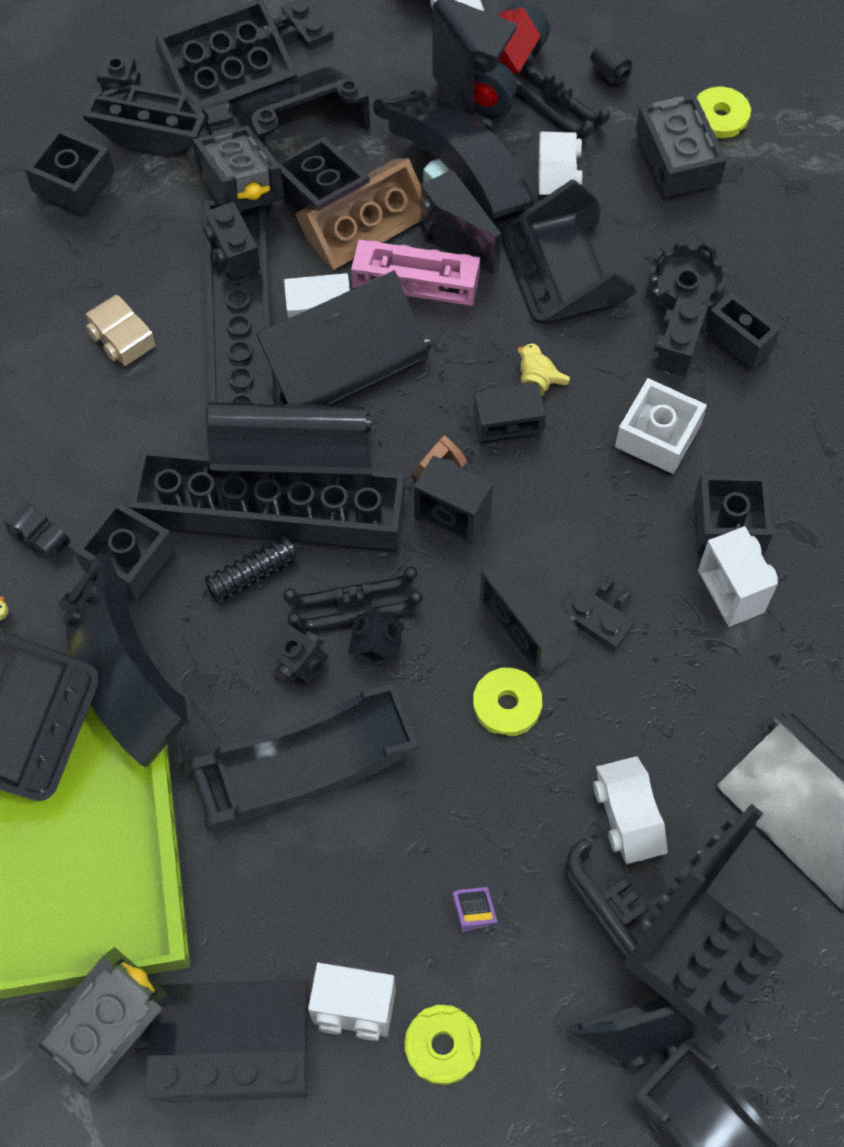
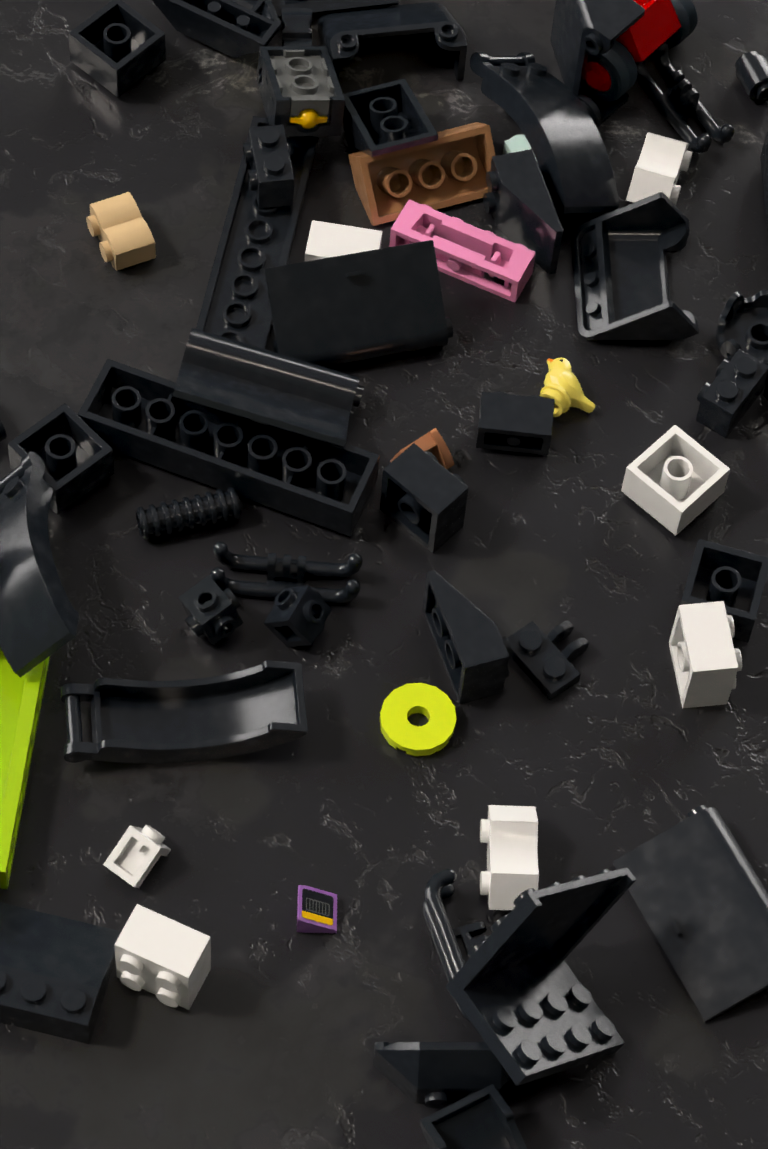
camera: 10 degrees right, 5 degrees down
(298, 902) = (136, 854): none -> white bracket
(436, 1067) = (236, 1053): neon yellow tile -> none

